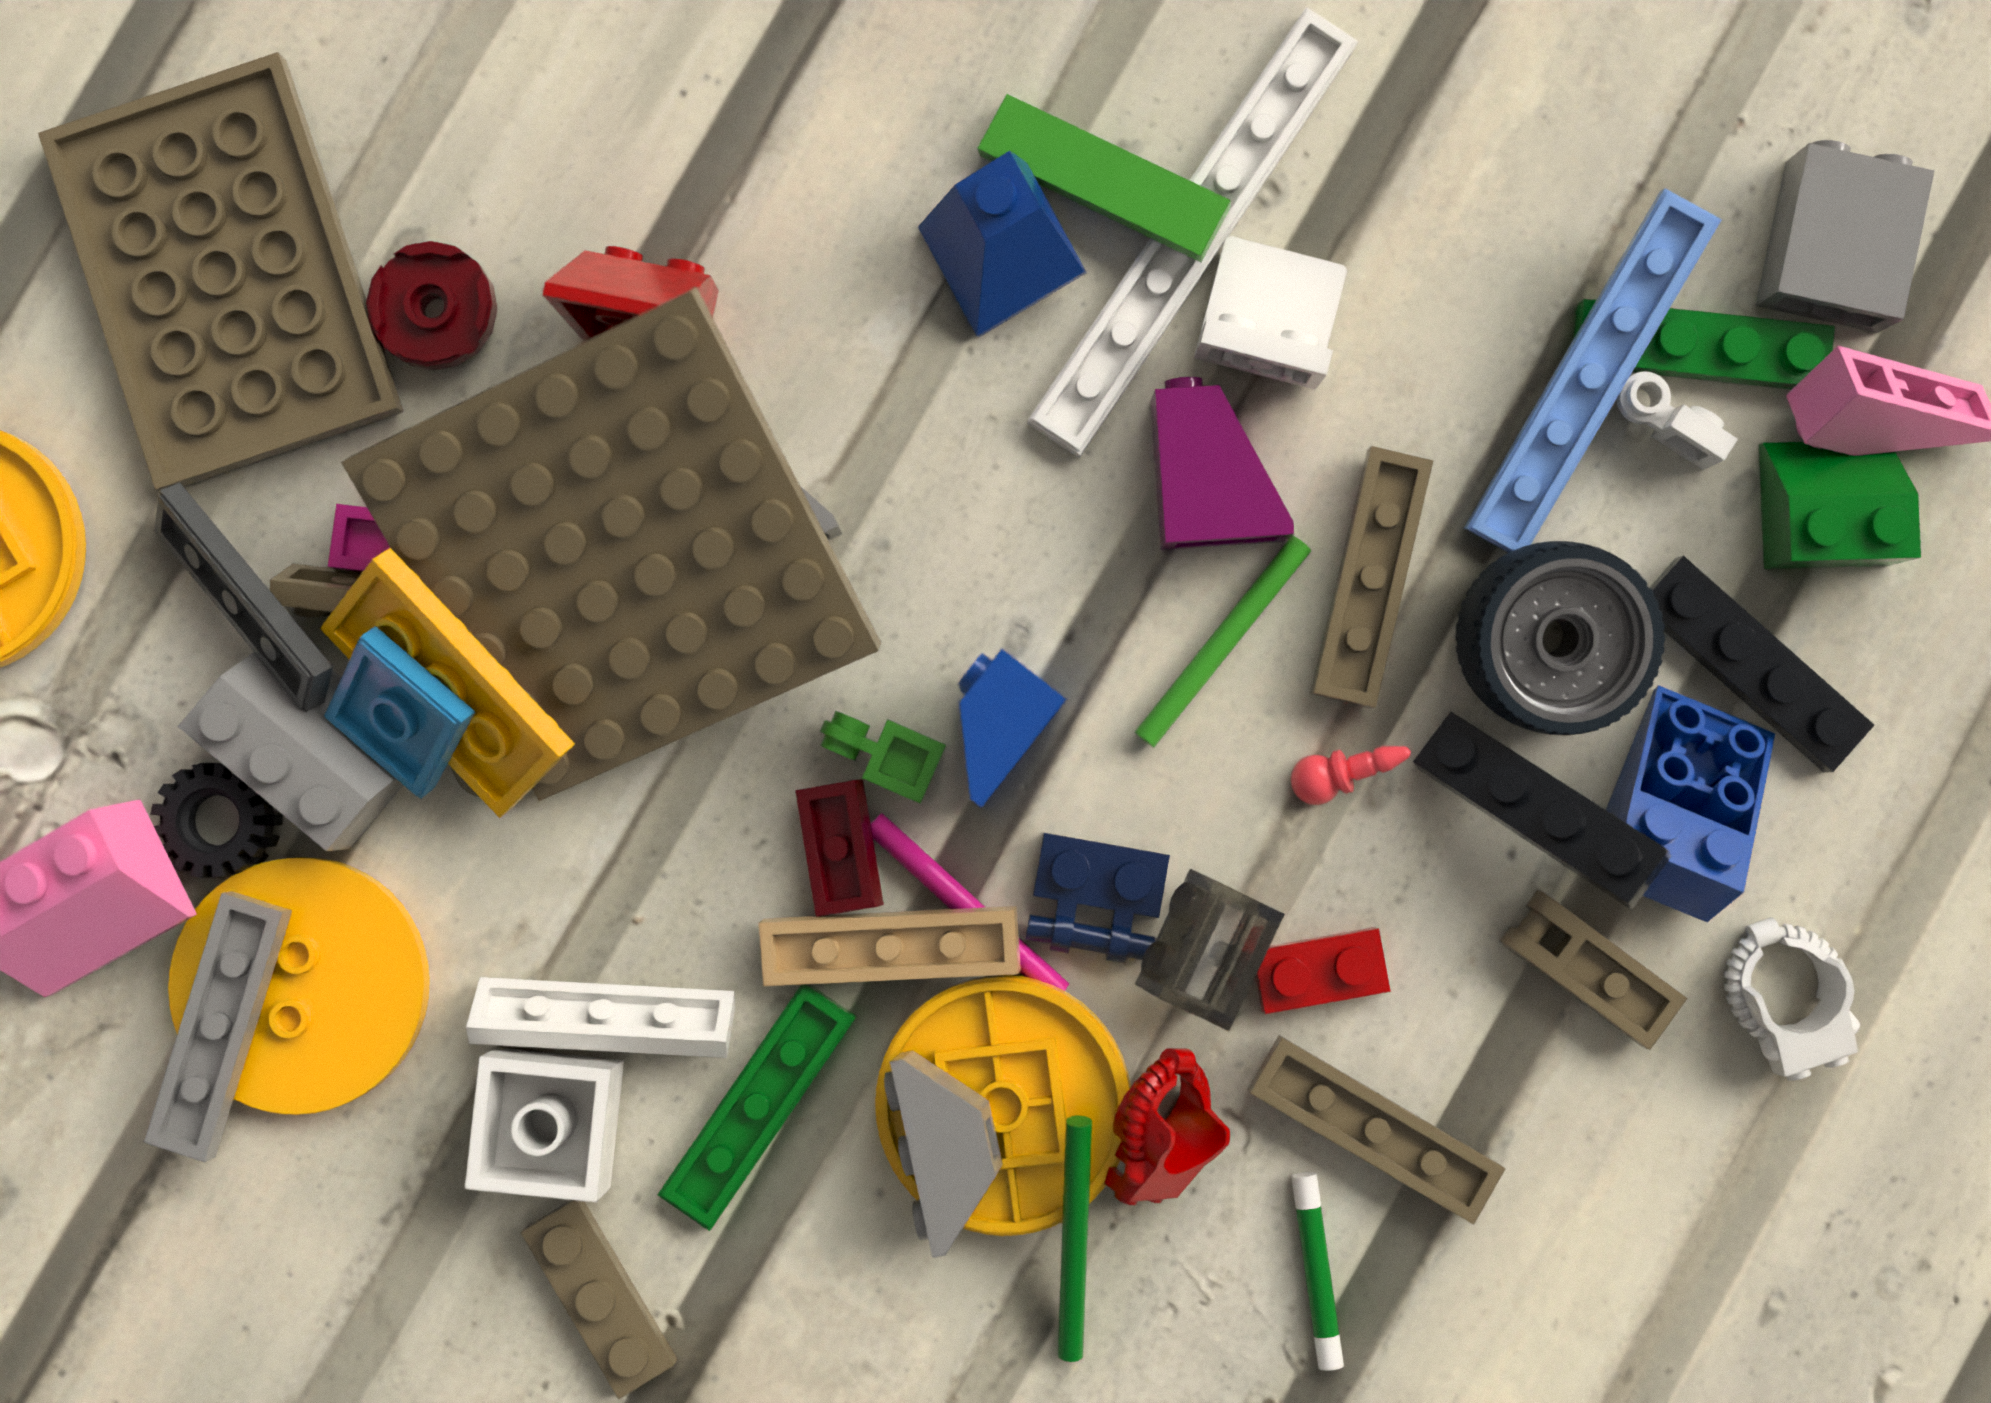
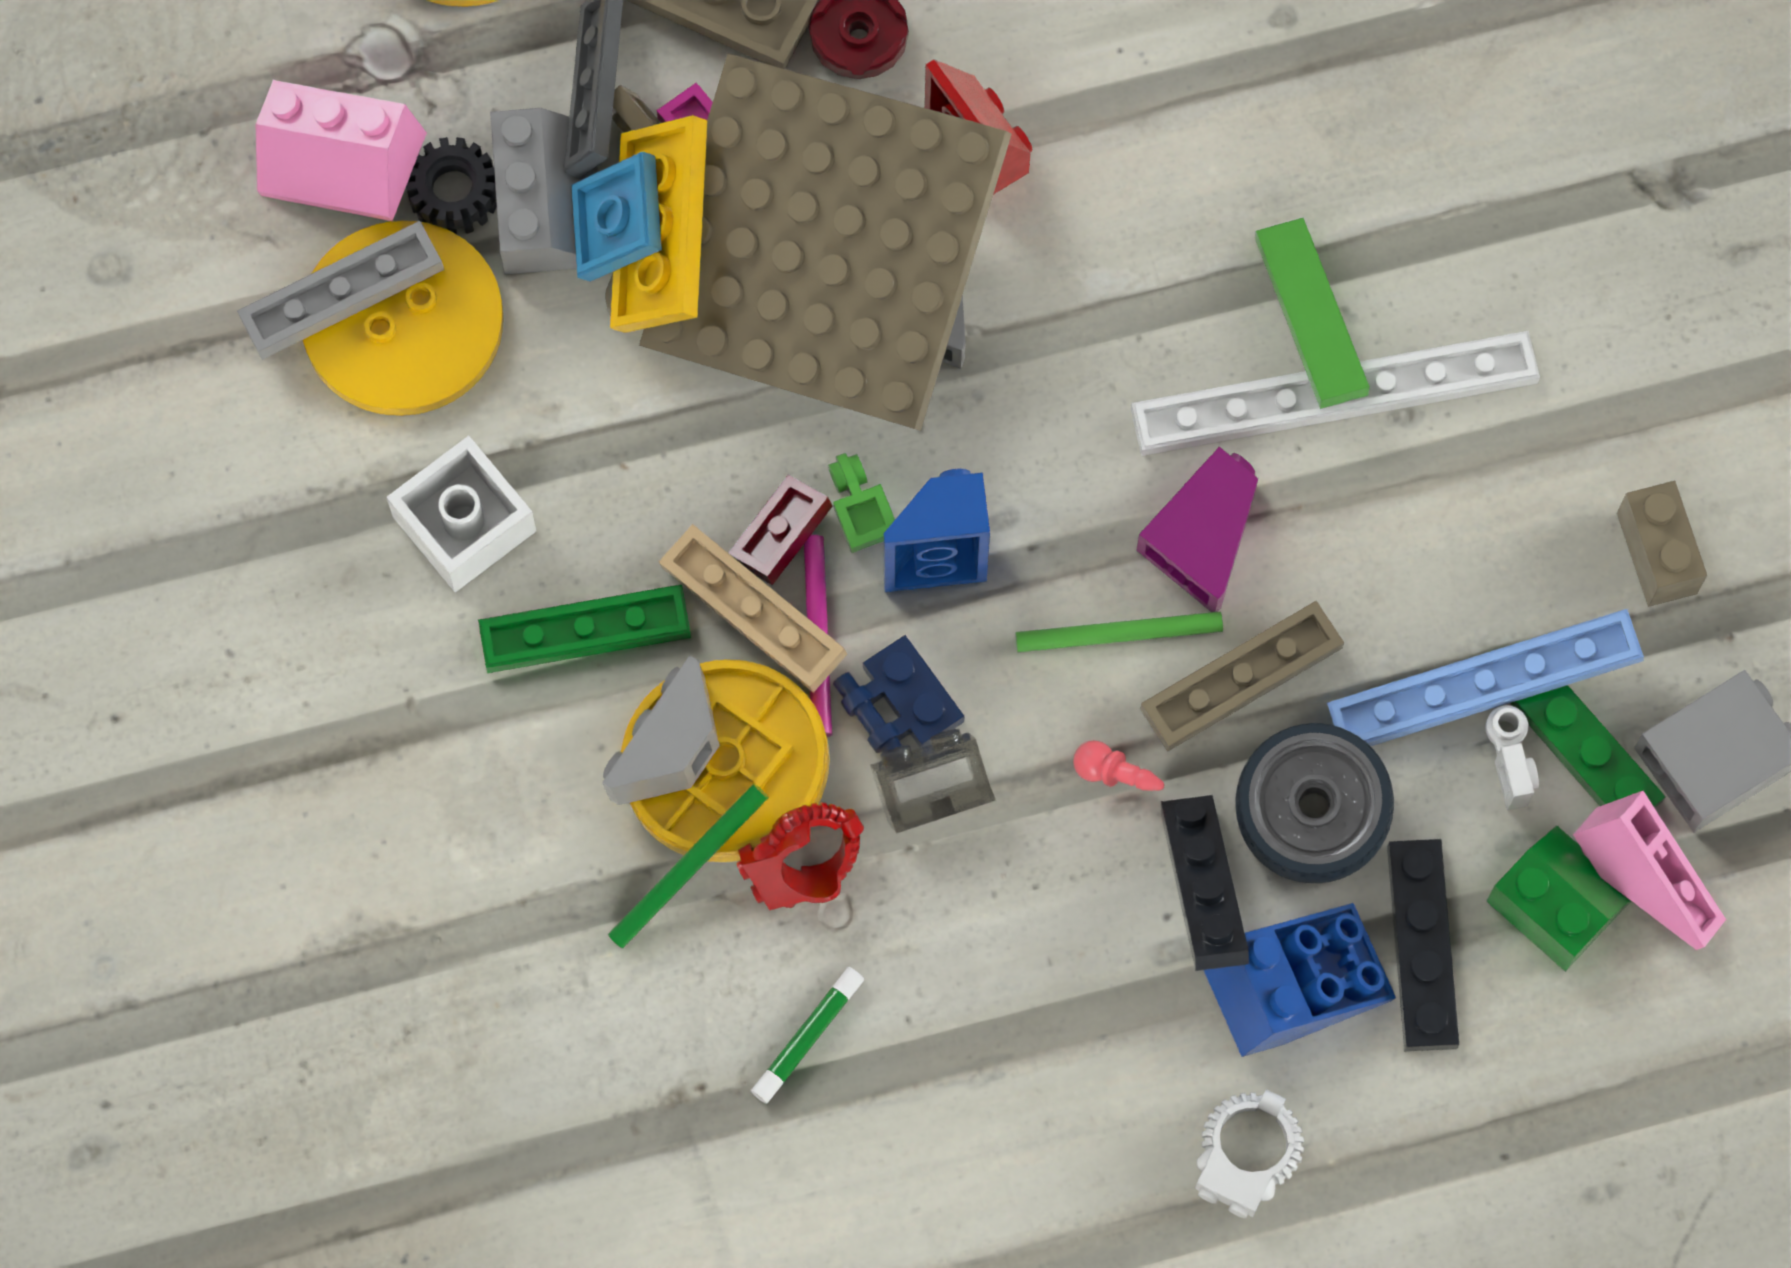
camera: 45 degrees right, 15 degrees down
(599, 1297) = (385, 645): dark tan plate -> none
(601, 1017) = (551, 493): white plate -> none
(999, 243) = (1215, 290): blue slope -> none
(1271, 313) = (1333, 476): white bracket -> none
(1322, 970) = (985, 868): red plate -> none
(1376, 1129) = (925, 984): dark tan plate -> none
(1595, 971) = (1146, 1022): dark tan plate -> none
(1618, 94) = (1661, 543): none -> dark tan brick

